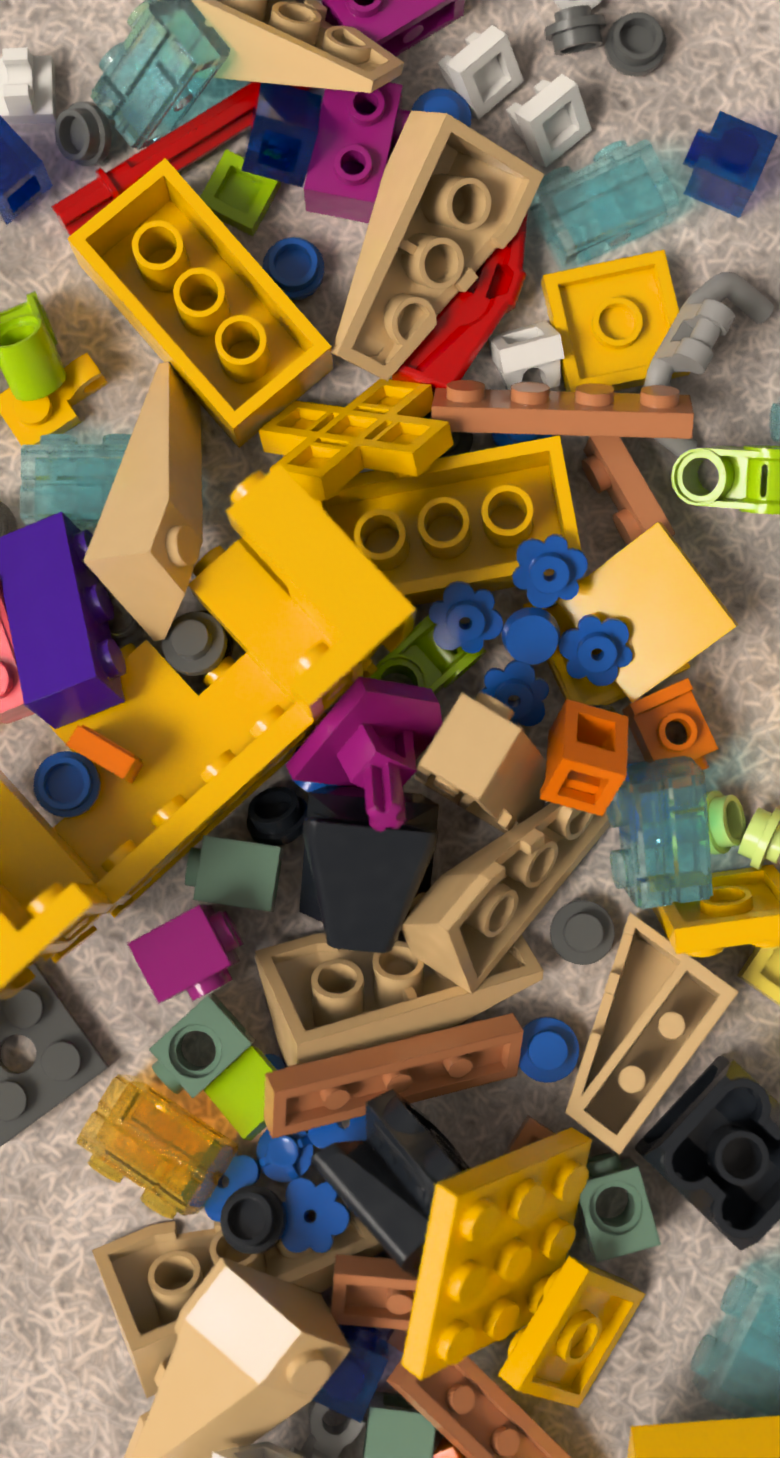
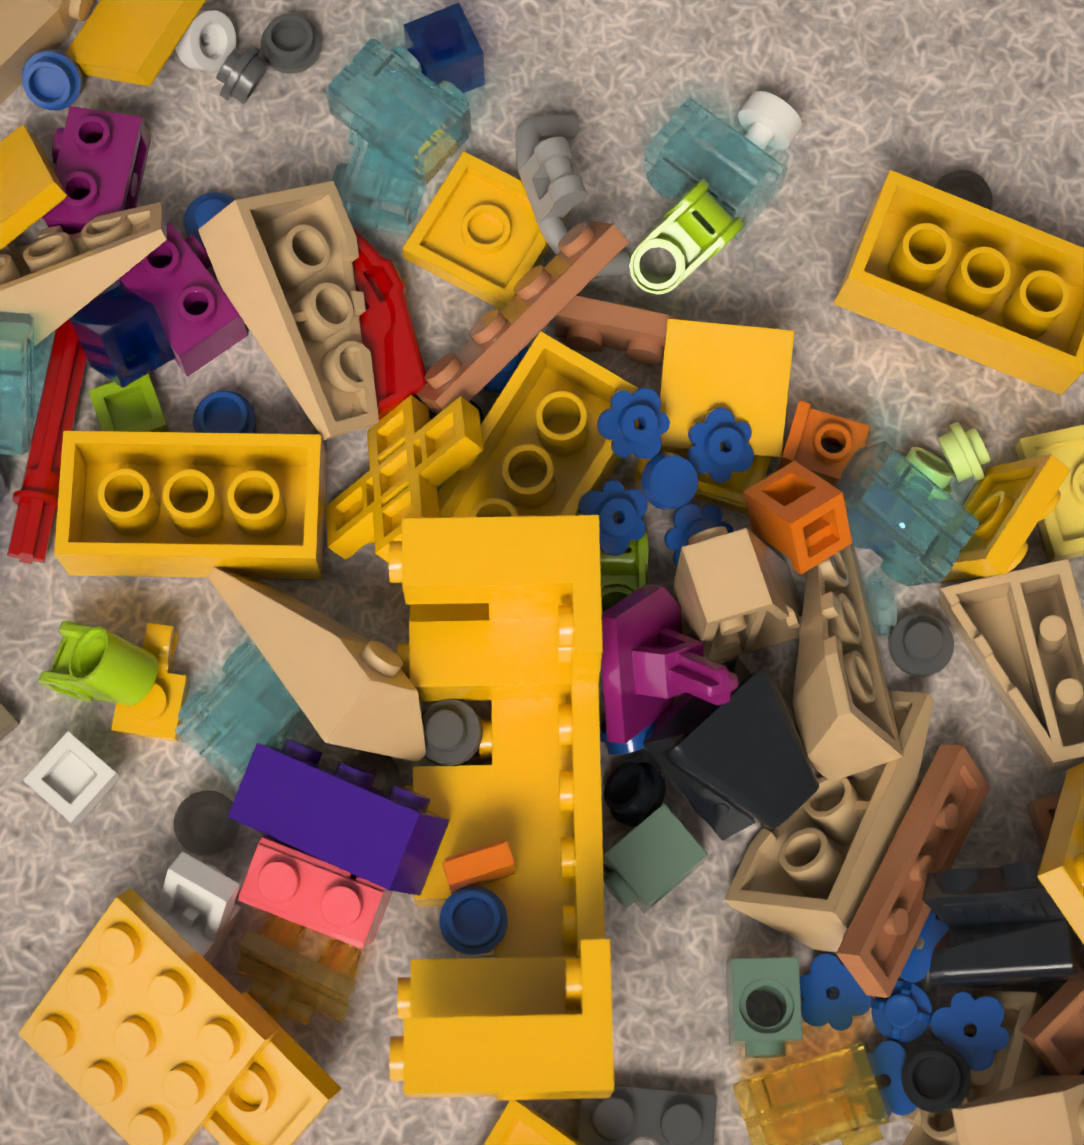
camera: 45 degrees left, 10 degrees down
(188, 953) = (688, 942): magenta brick -> none
(241, 1092) = (832, 999): lime tile -> none
(483, 70) = (209, 161): white tile -> none
(528, 348) = (444, 308): white tile -> none
(548, 1050) = (991, 745): blue plate -> none
(551, 119) = (291, 145): white tile -> none
(584, 877) = (881, 607): none -> clear light blue piece
(644, 170) = (400, 109): none -> clear light blue brick

